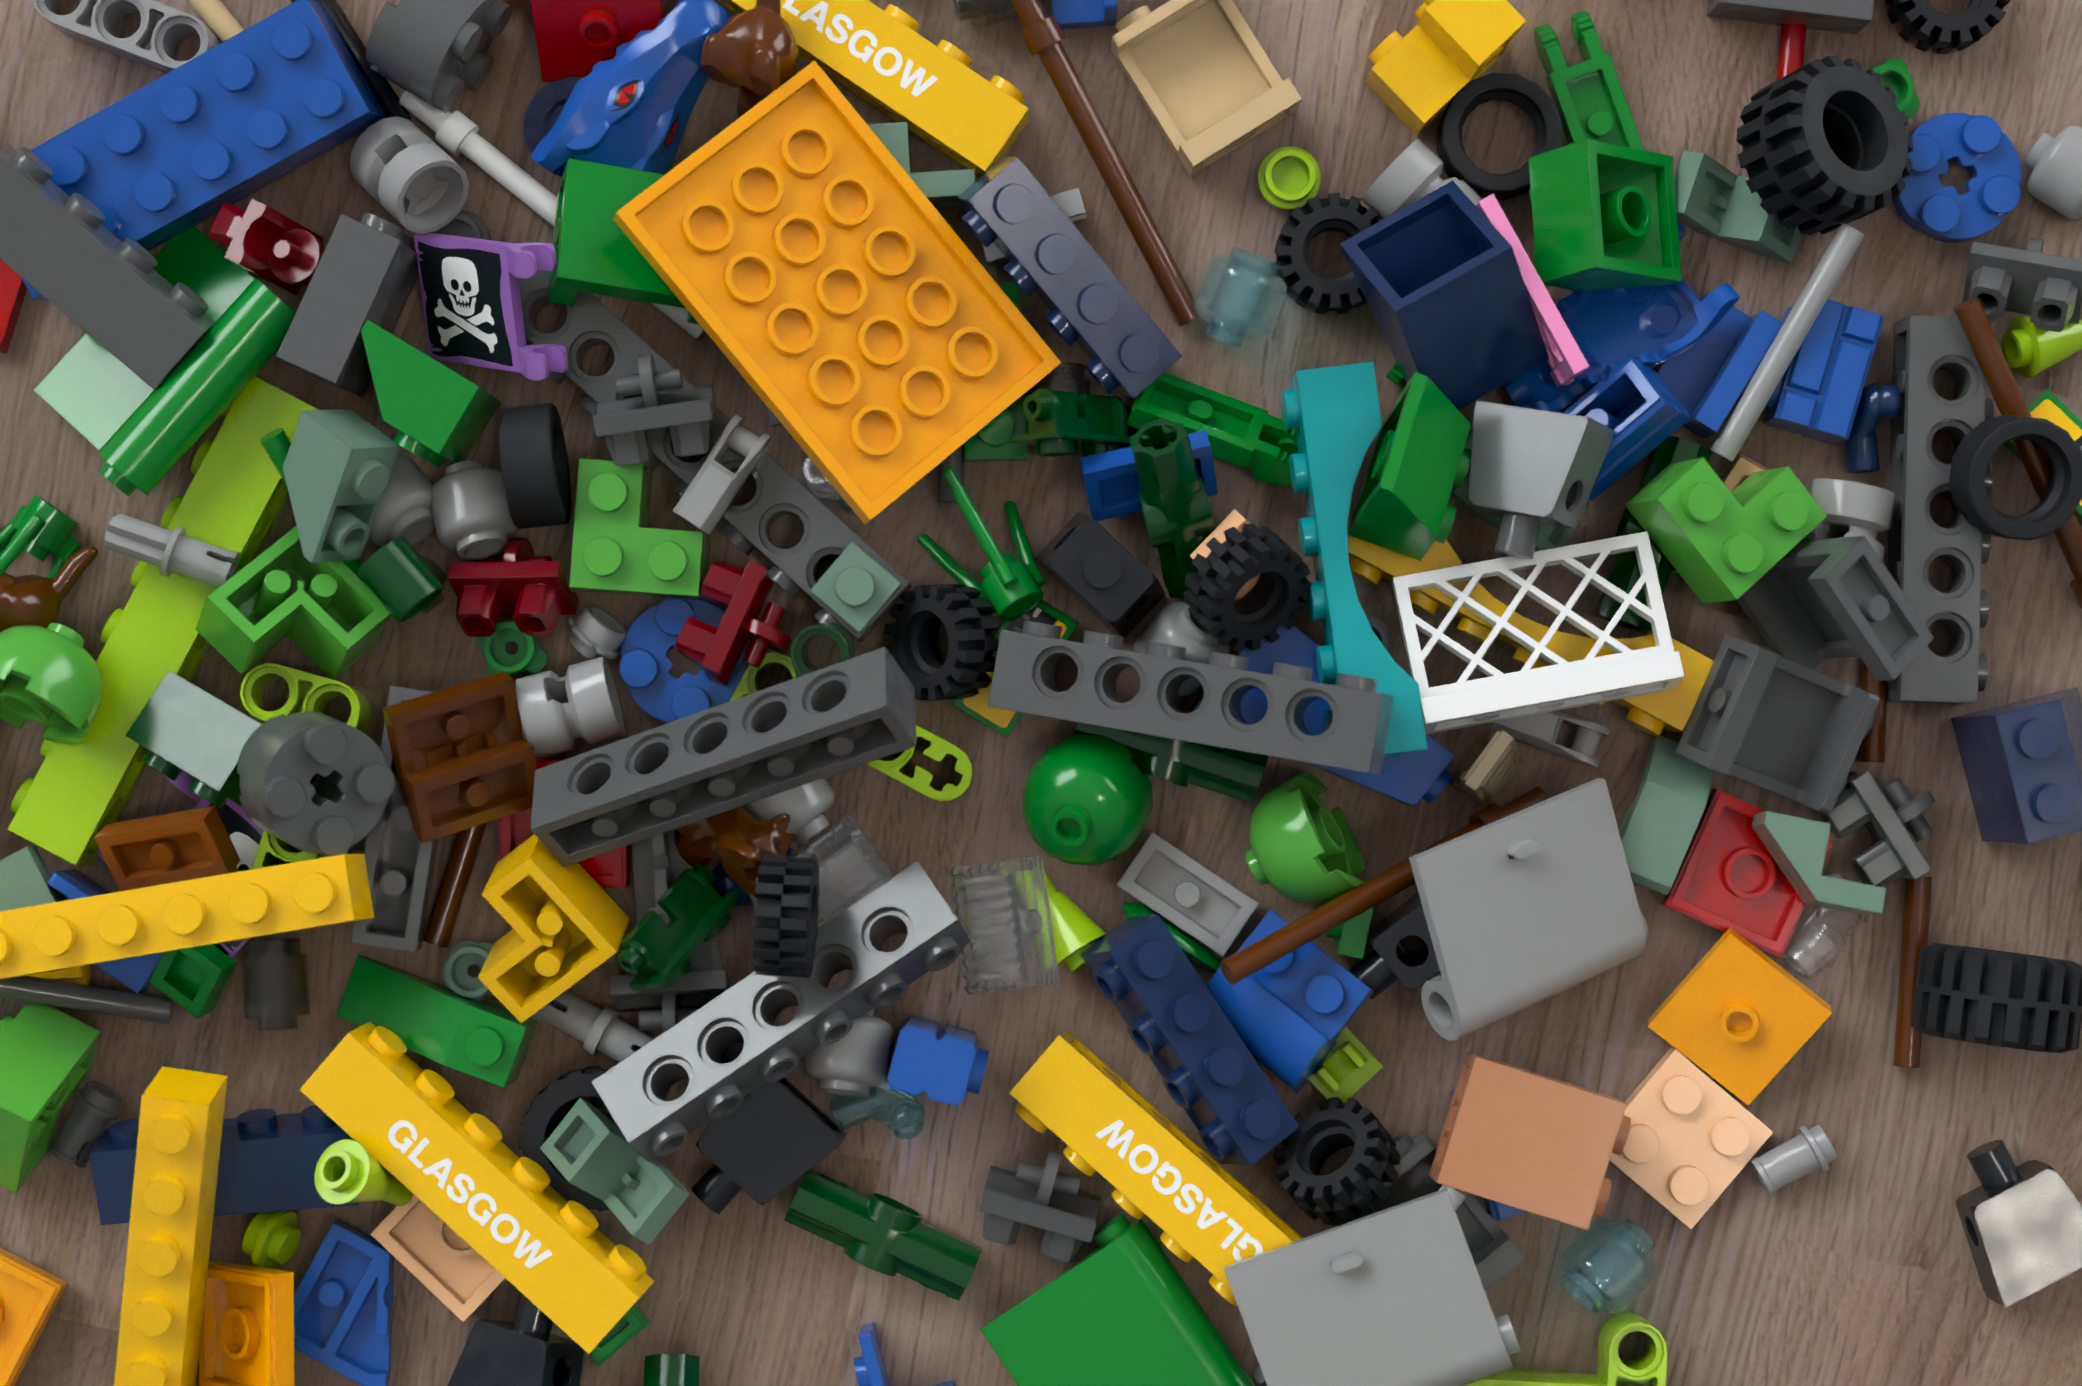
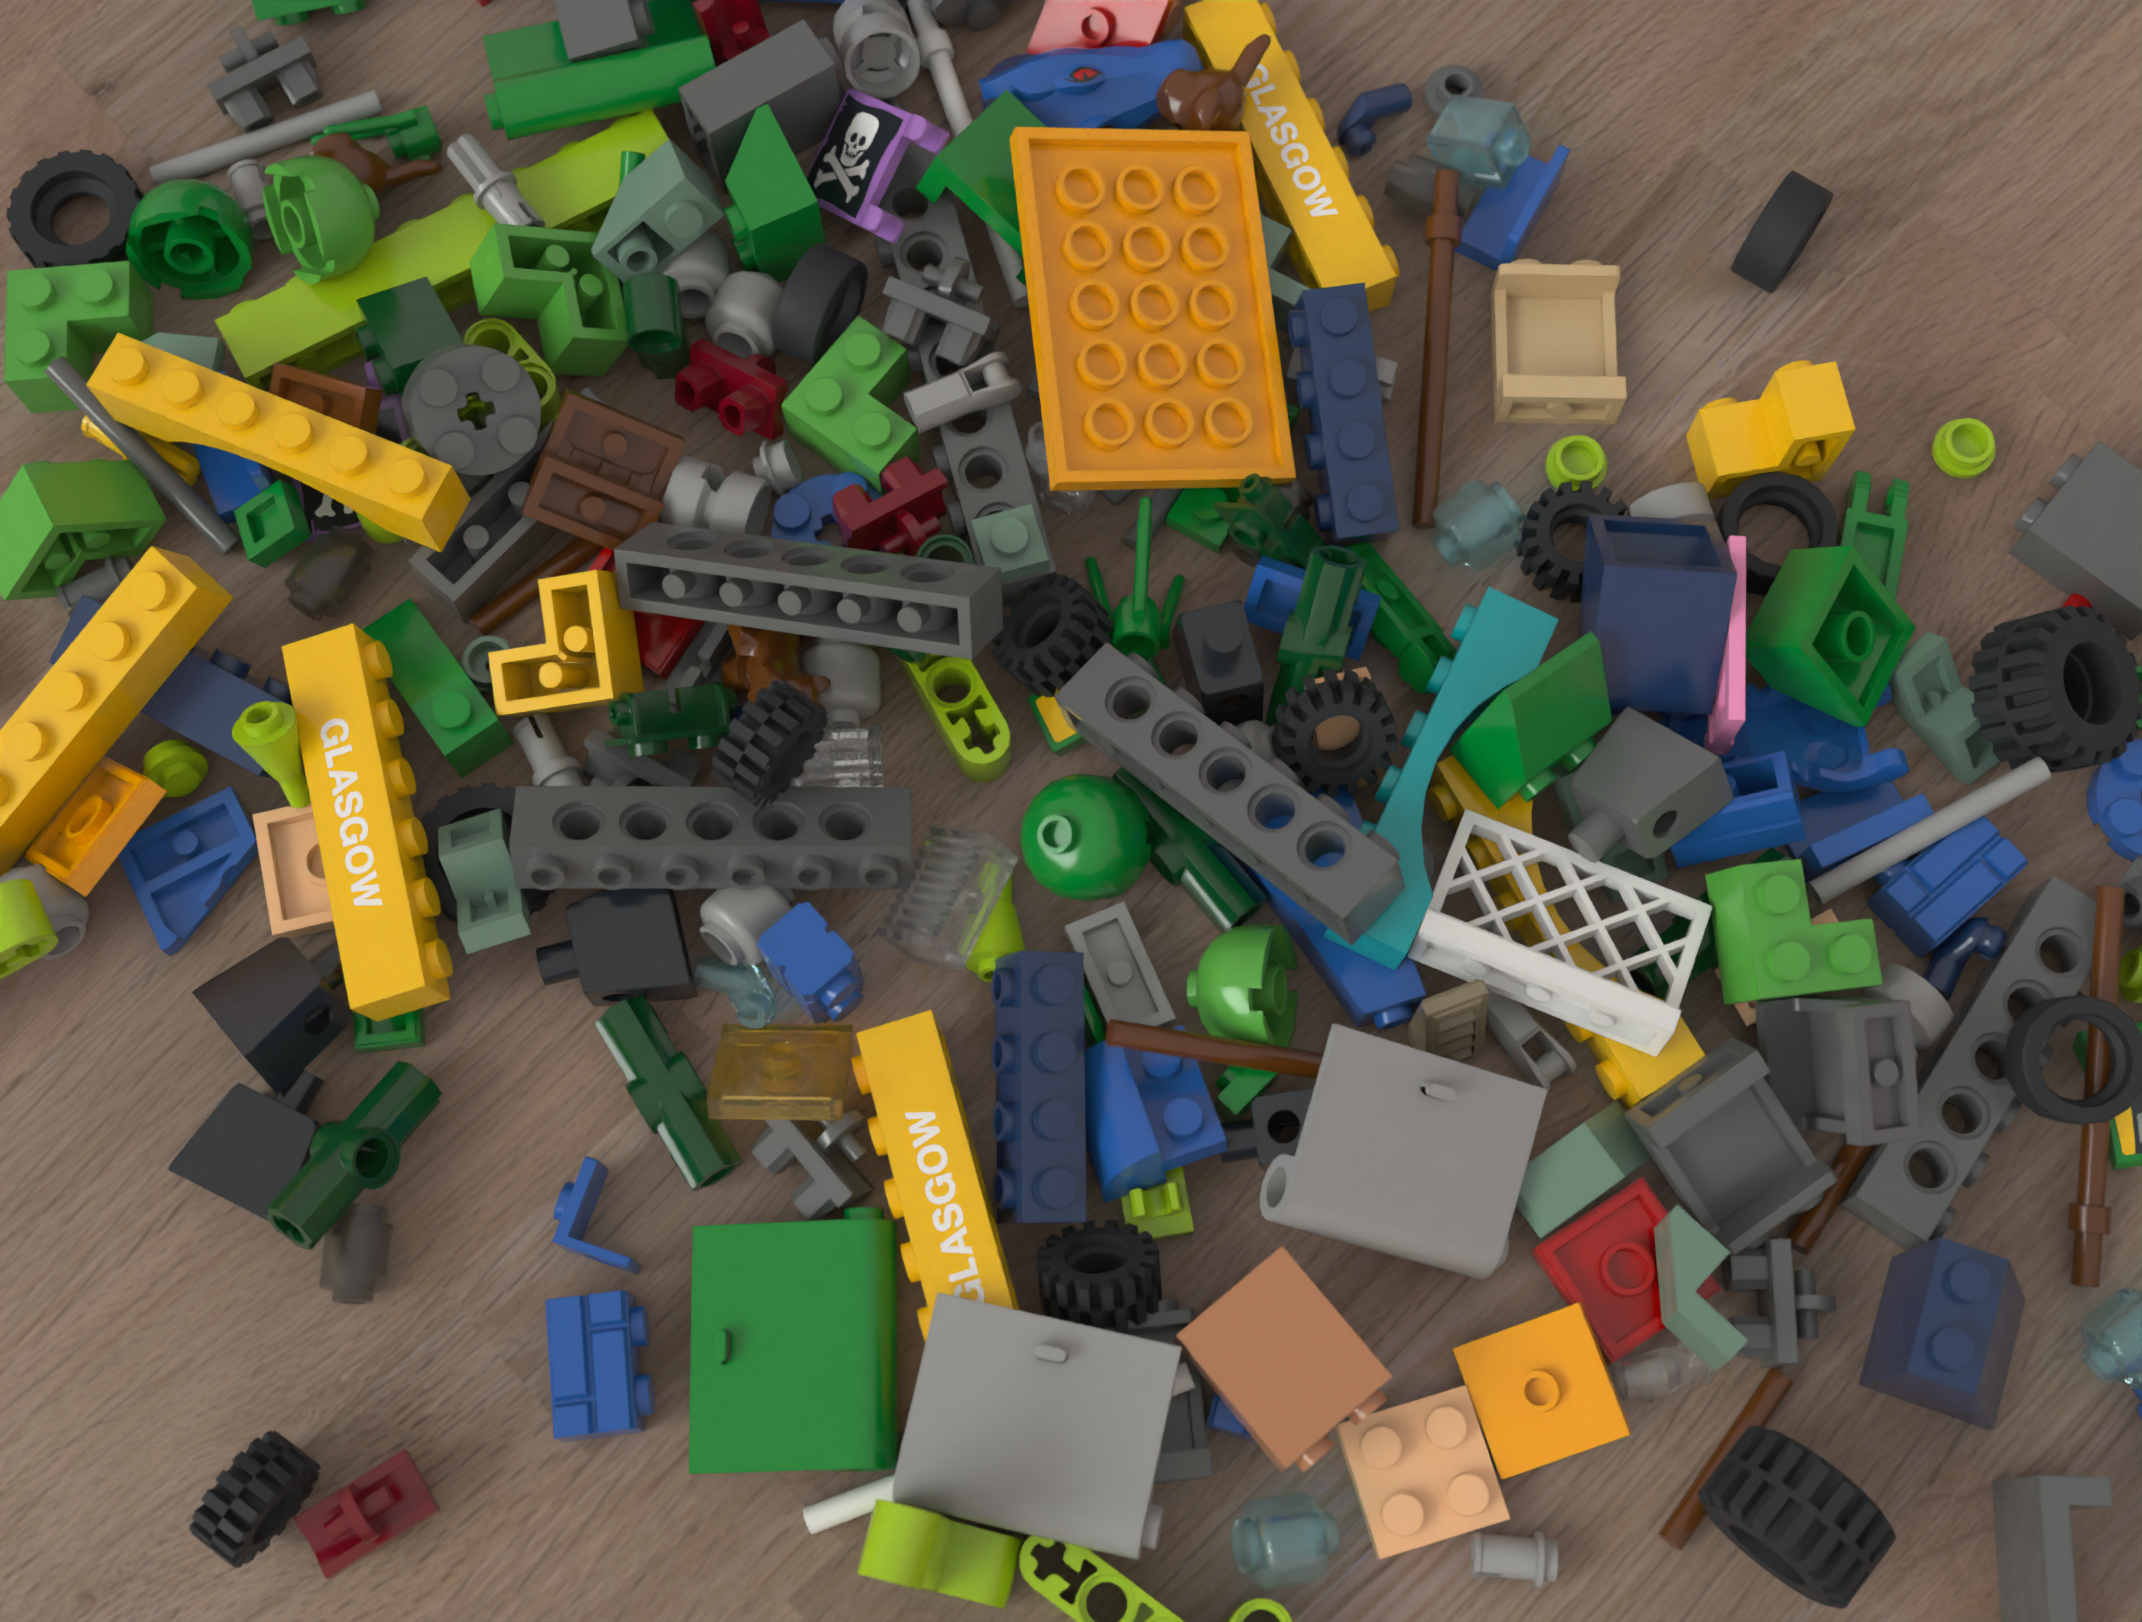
camera: 35 degrees right, 15 degrees down
(527, 658) = (700, 424): green plate -> none
(968, 1162) = (781, 1072): none -> clear yellow plate

